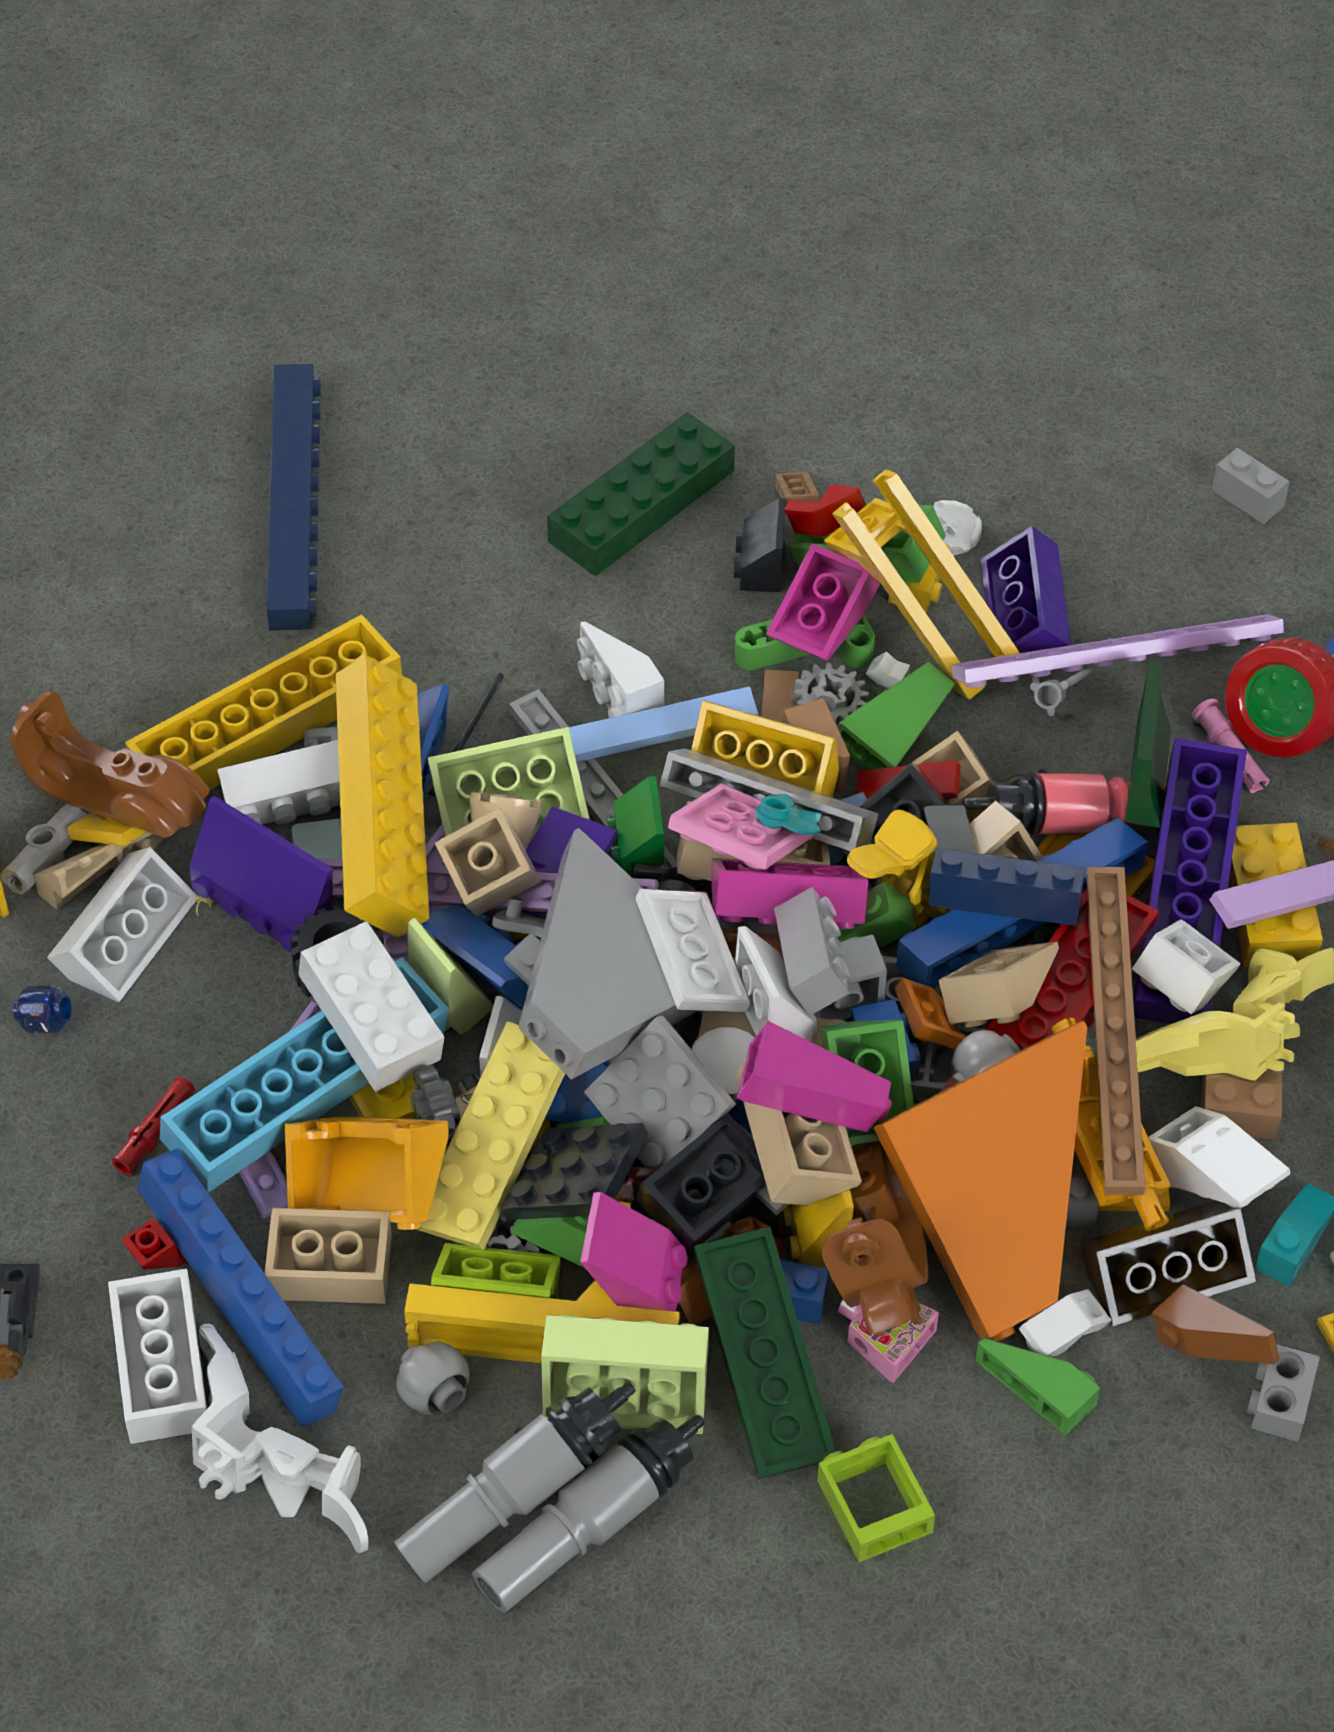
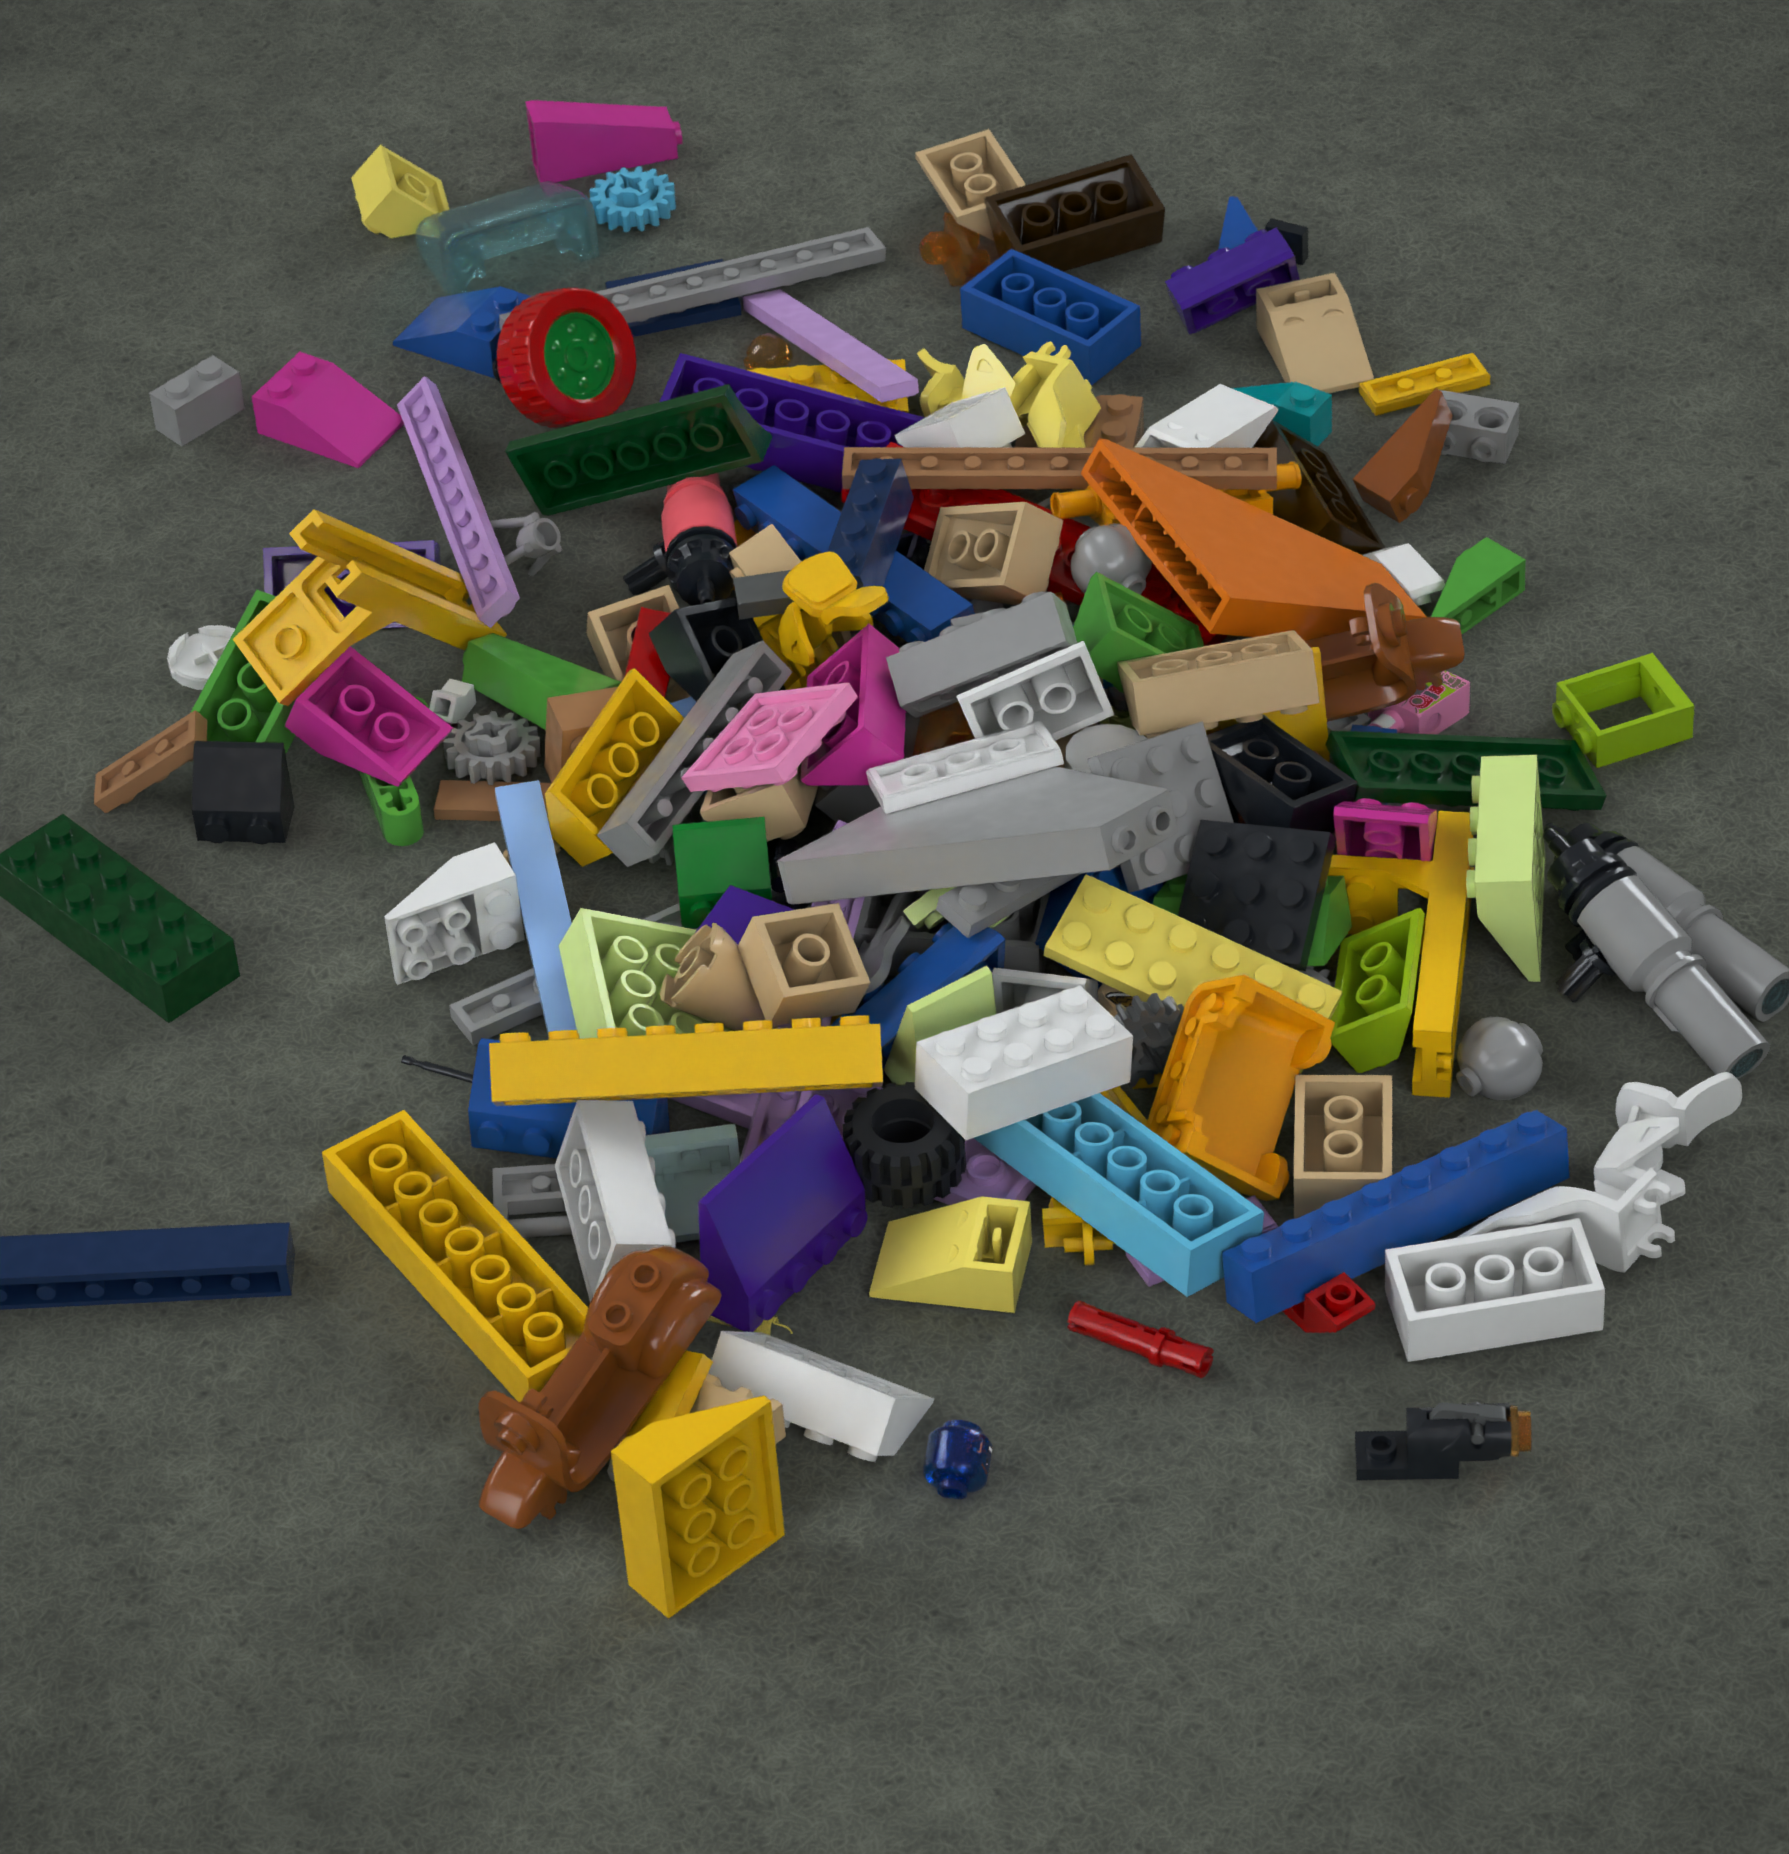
camera: 85 degrees left, 10 degrees down
(242, 1006) = (957, 1255): none -> light yellow slope
(780, 811) = (759, 699): teal plate -> none
(811, 1081) = (1177, 642): dark pink slope -> none
(817, 518) = (224, 688): red slope -> none
(1246, 566) = (323, 411): none -> dark pink slope

